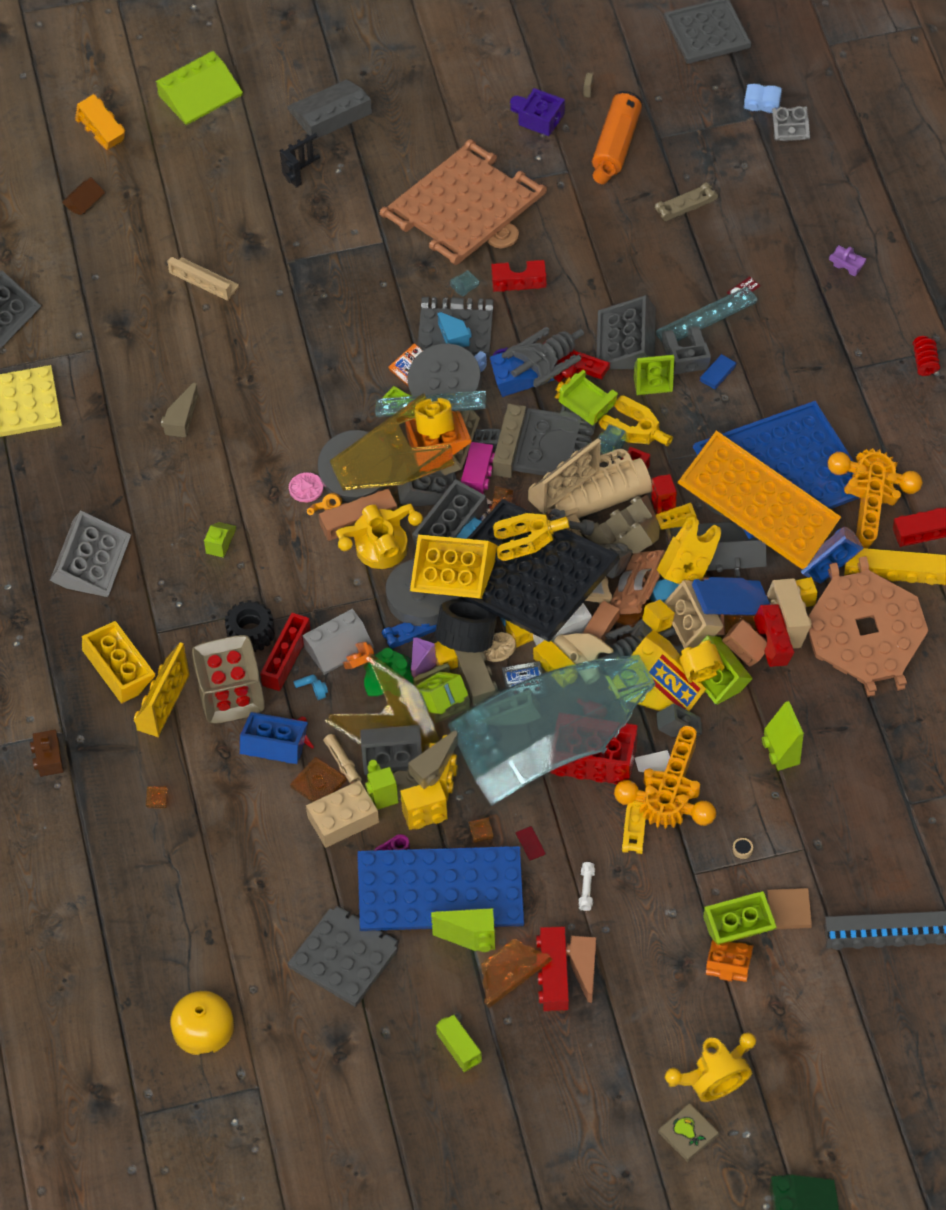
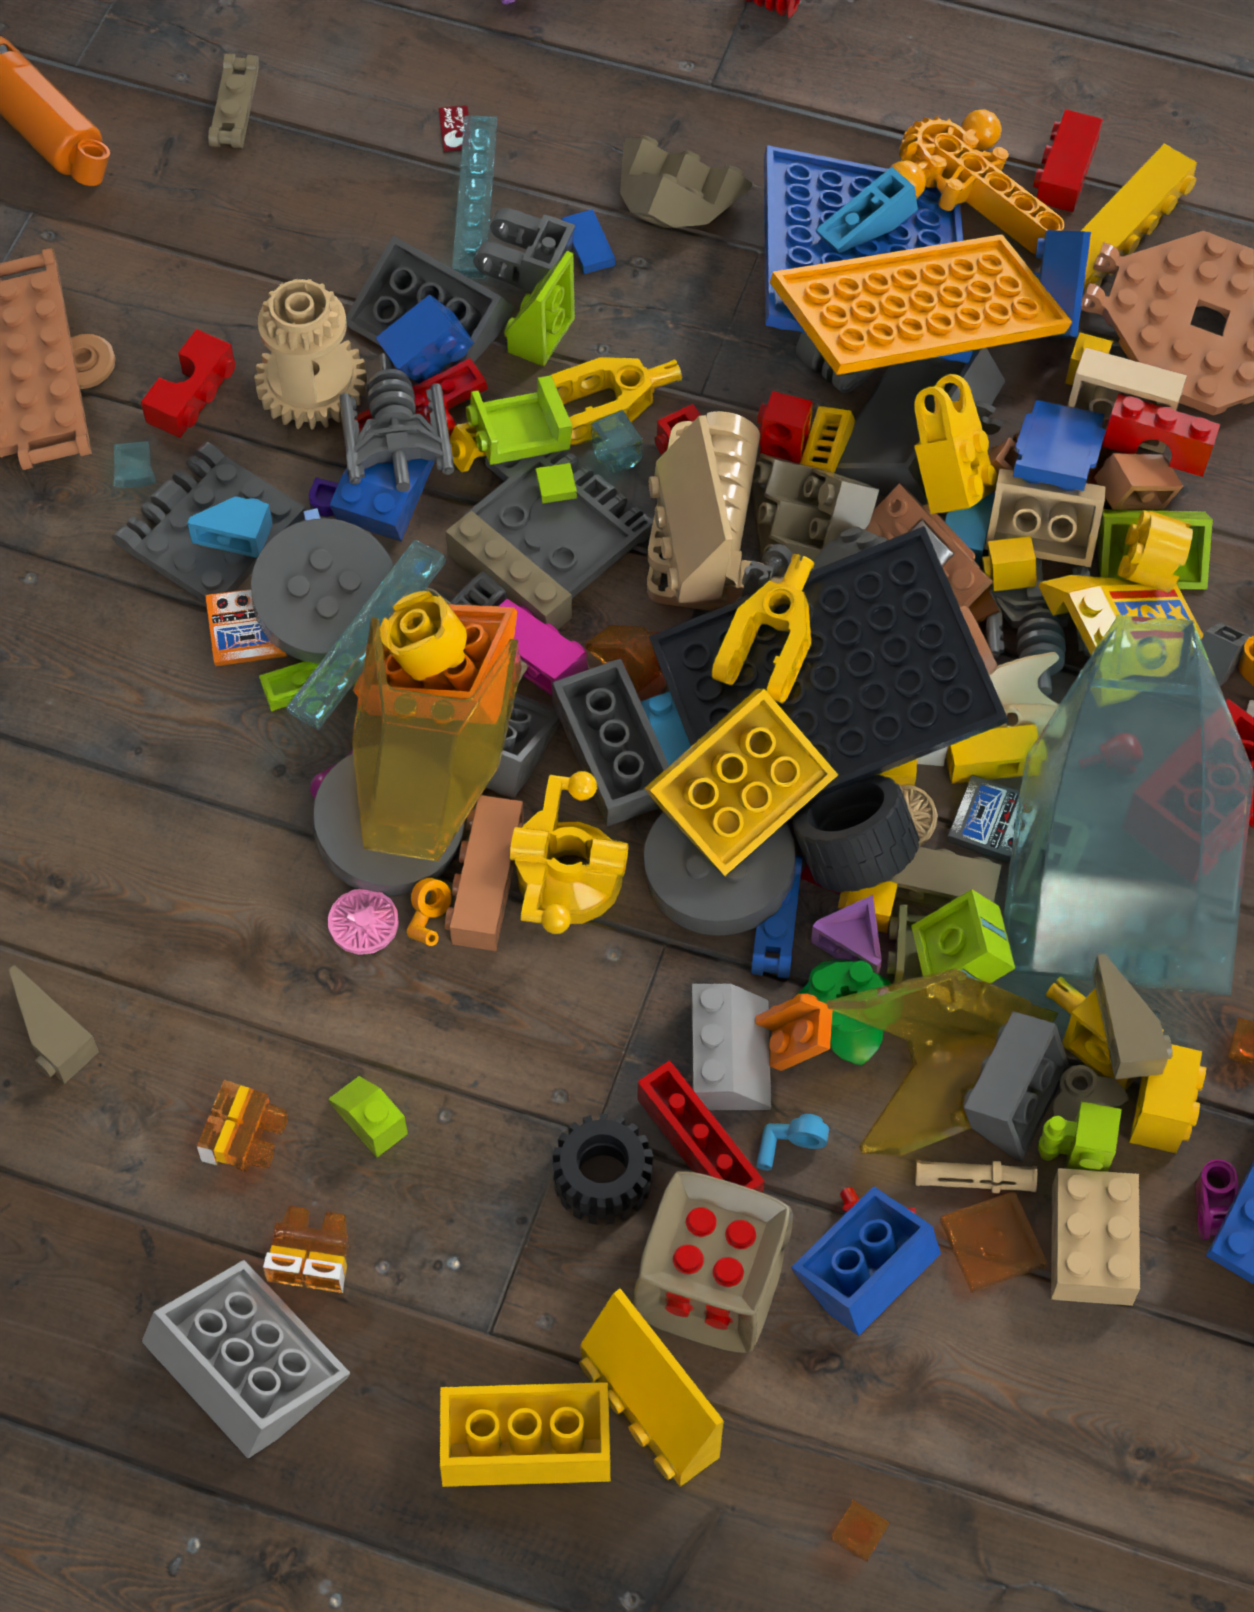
camera: 60 degrees left, 5 degrees up
(145, 552) = (308, 1252): none -> clear orange hips
(189, 501) = (236, 1128): none -> clear orange hips
(555, 301) = (306, 361): none -> tan piece
(568, 429) = (556, 483): none -> lime tile
(600, 339) = (425, 340): none -> blue brick
(772, 384) = (676, 187): none -> dark tan brick
(802, 457) = (871, 212): none -> dark azure slope

